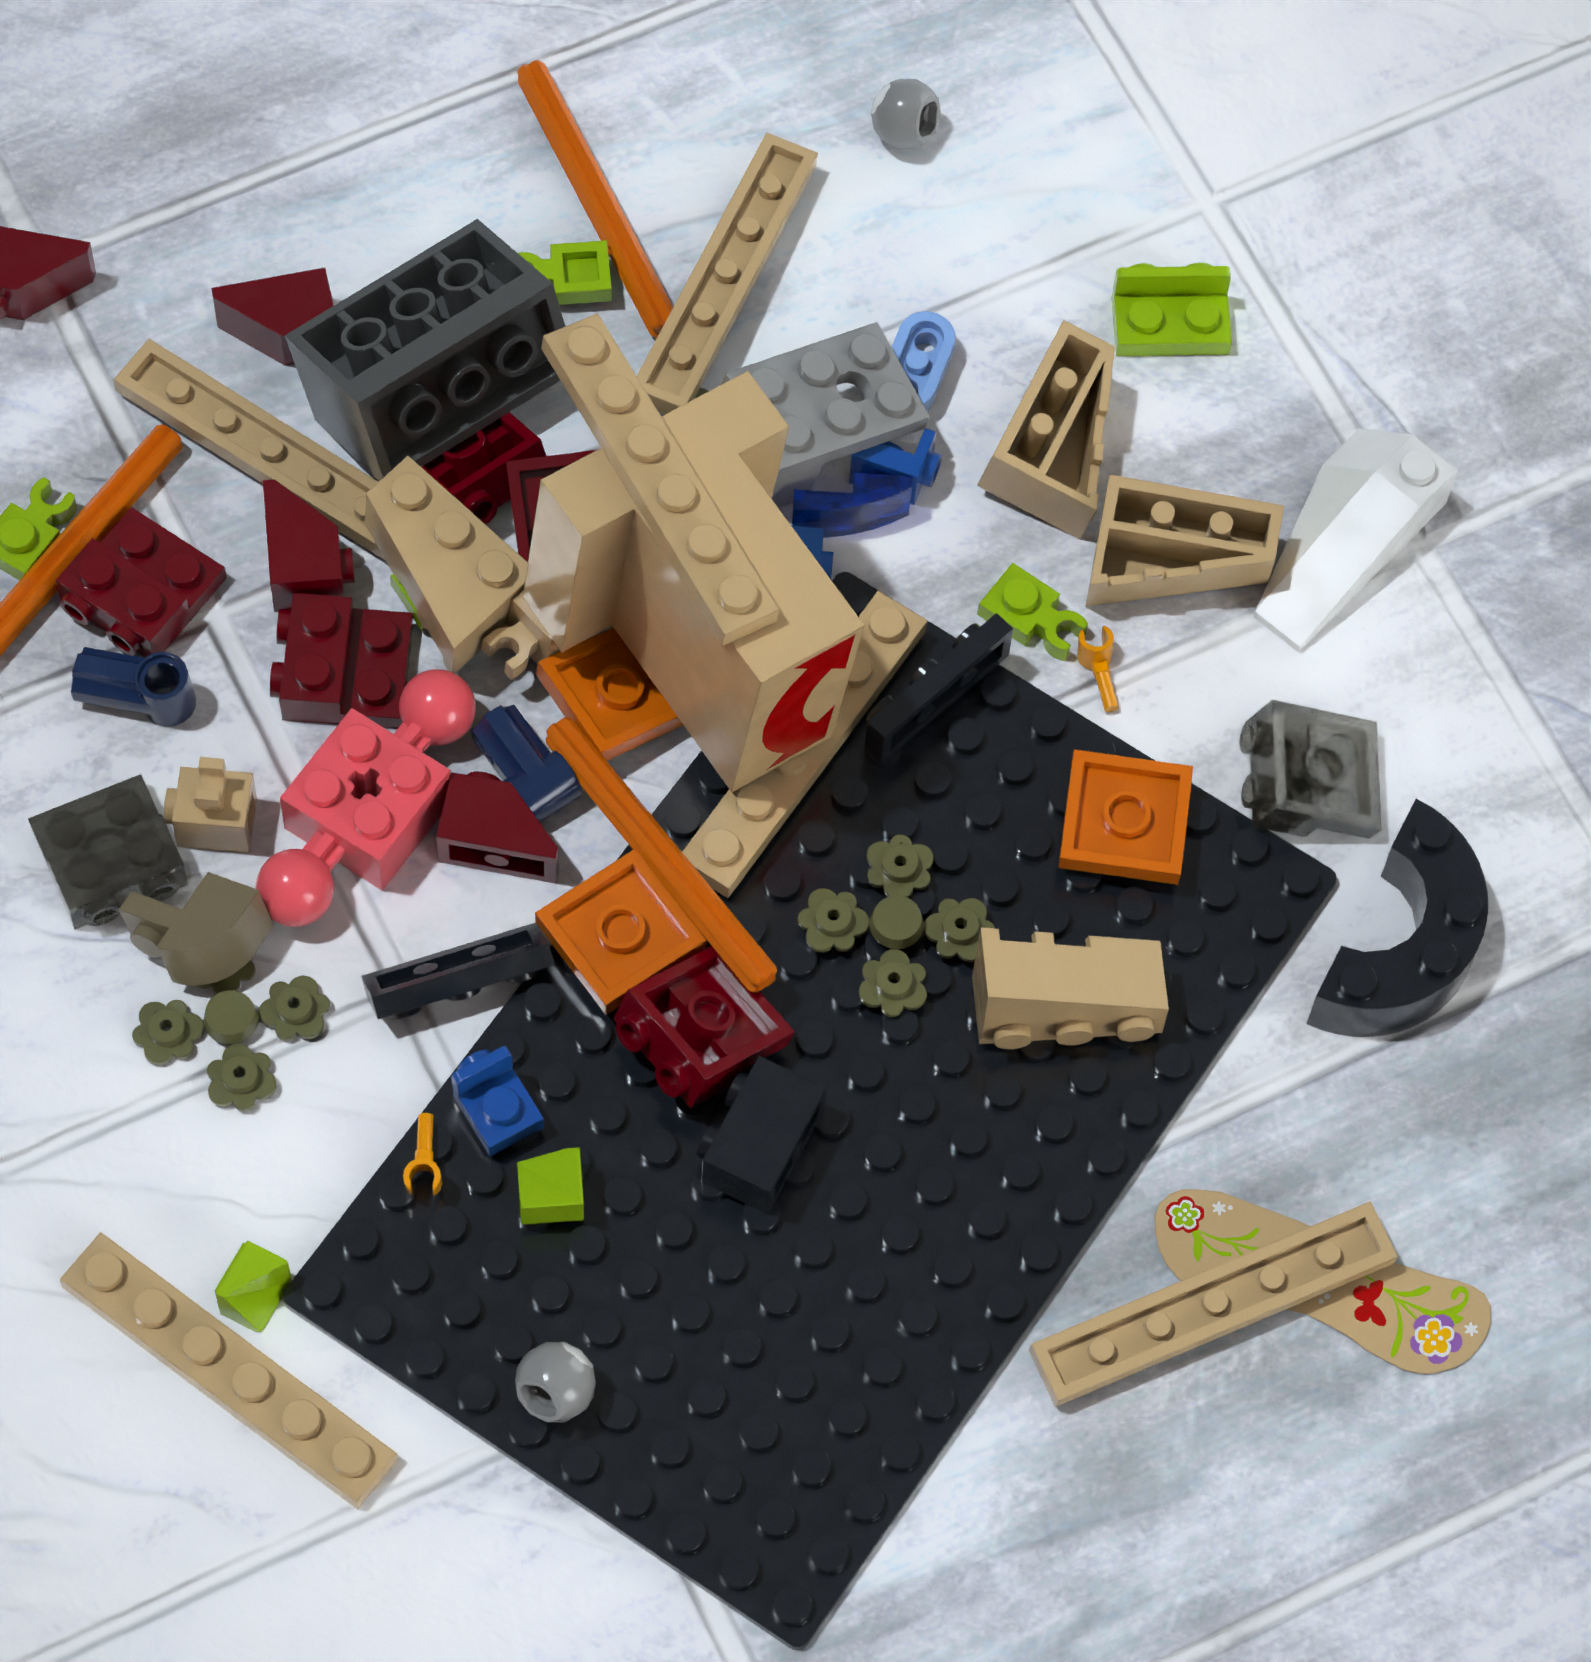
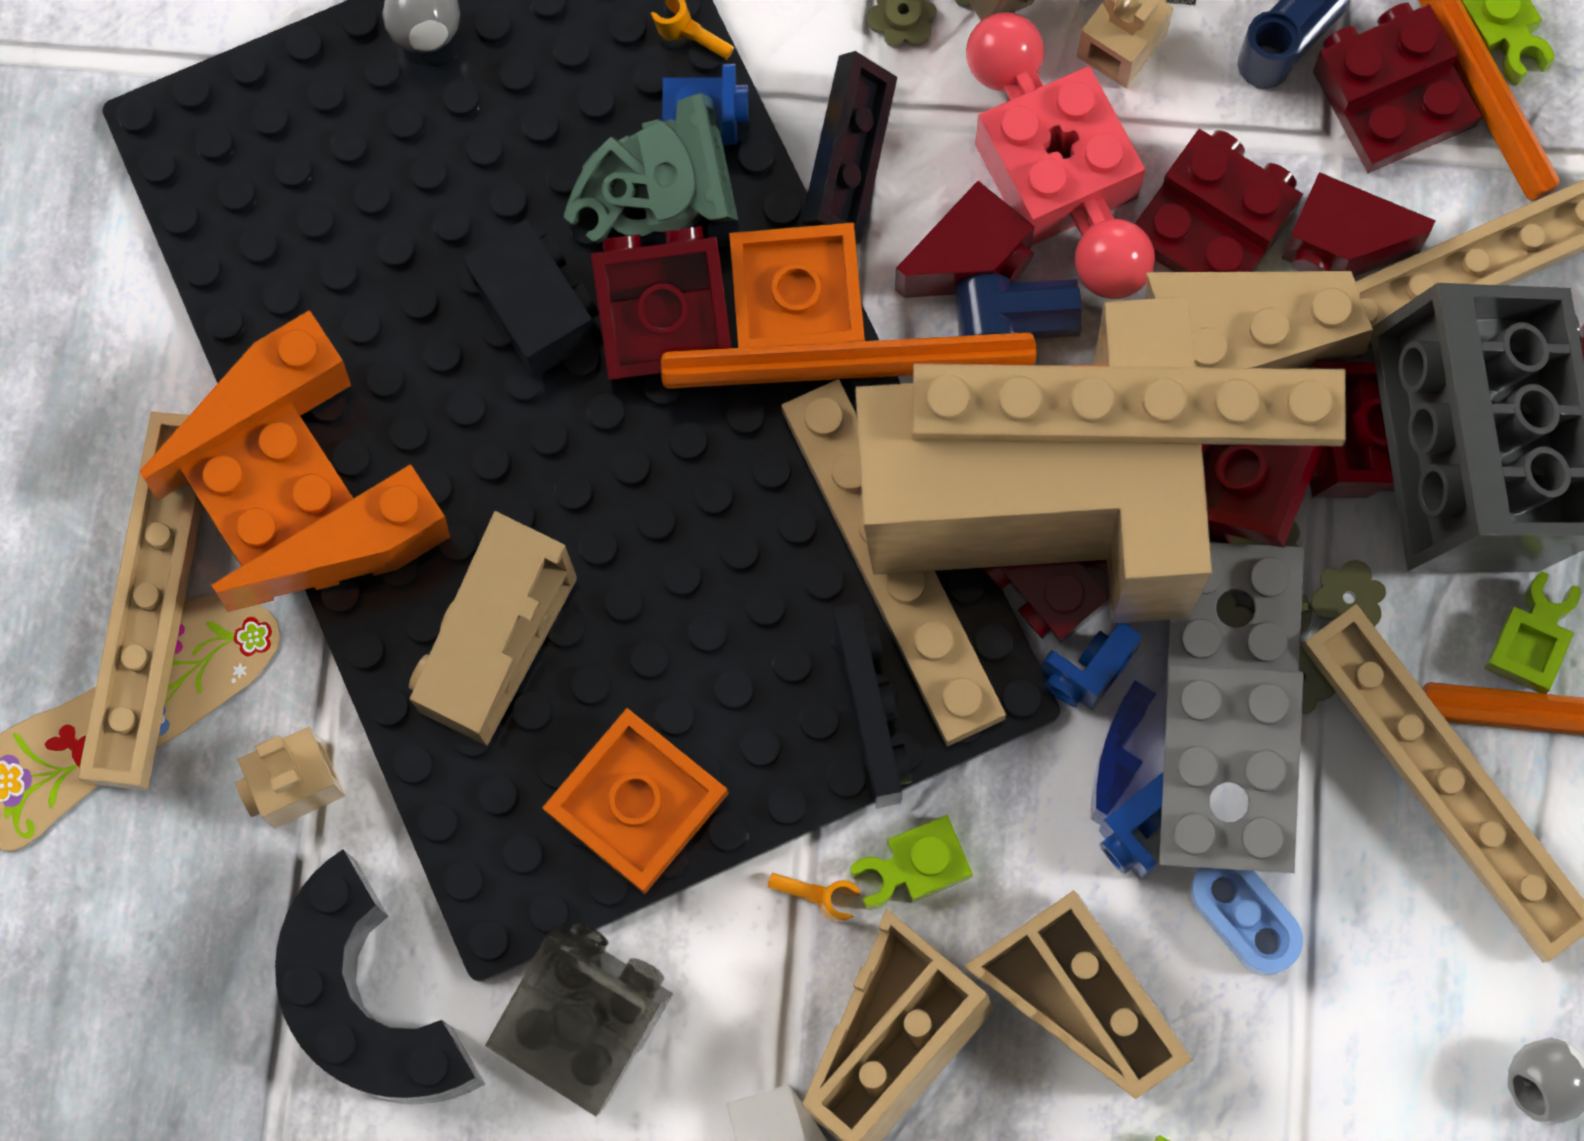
camera: 130 degrees right, 10 degrees up
(551, 1187) = (596, 107): lime slope -> none
(590, 1088) = (666, 169): none -> sand green piece
(894, 924) = (664, 539): olive plant -> none
(1063, 1233) = (274, 485): none -> orange wedge
(1284, 1095) = (288, 778): none -> tan brick

